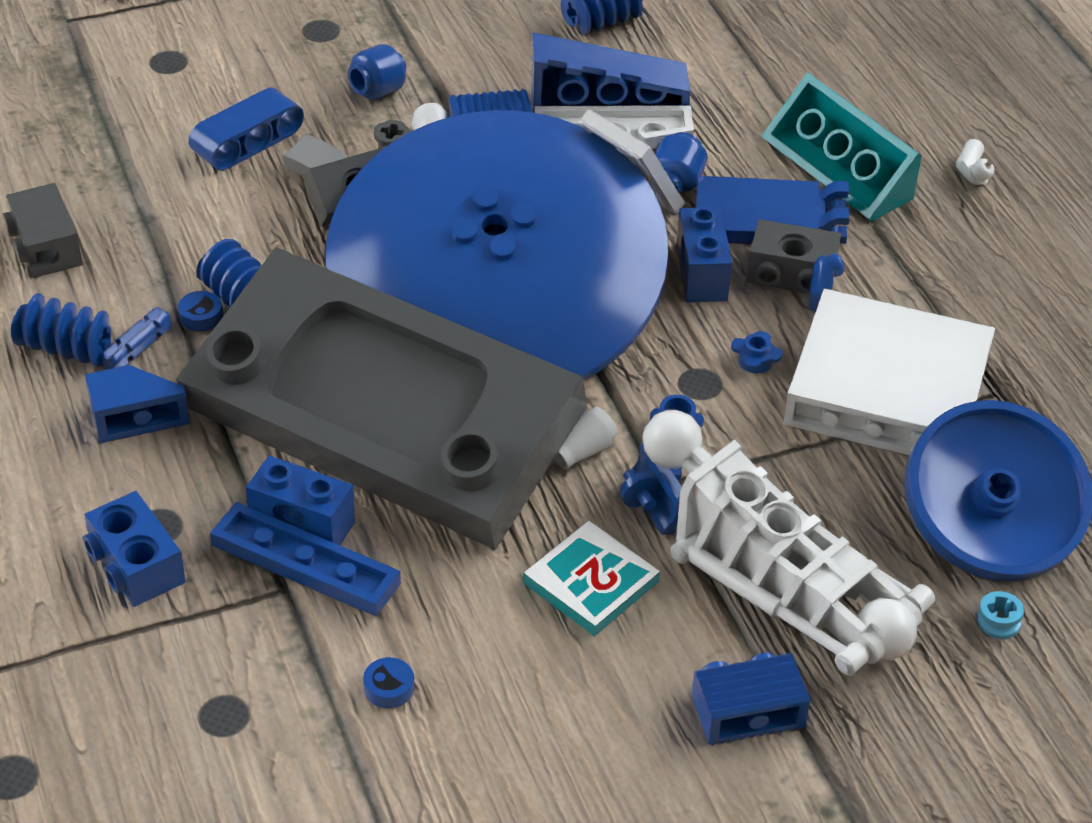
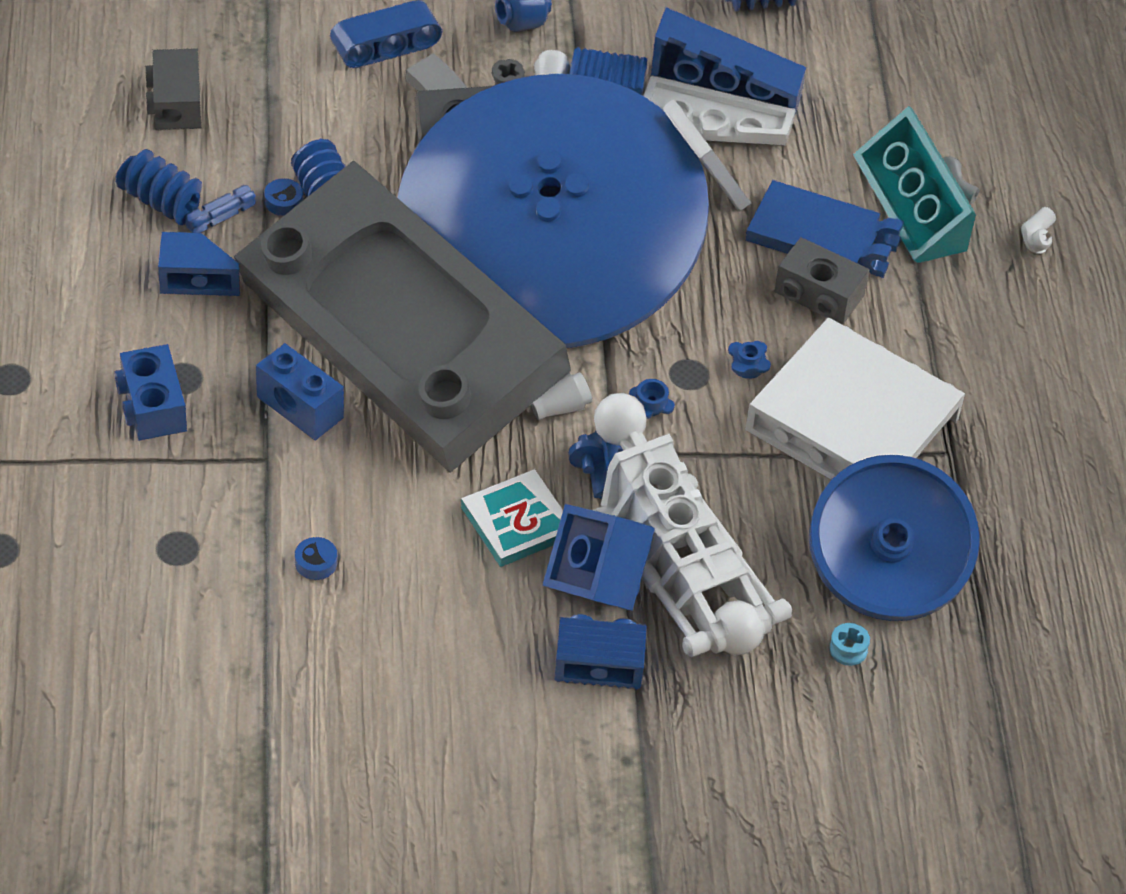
camera: 15 degrees right, 5 degrees up
(306, 558) = (288, 438): blue plate -> none
(682, 159) = (759, 163): blue head -> none
(703, 254) = (740, 257): blue brick -> none
(706, 593) = (599, 556): none -> blue slope
(822, 278) = (836, 300): blue arm -> none

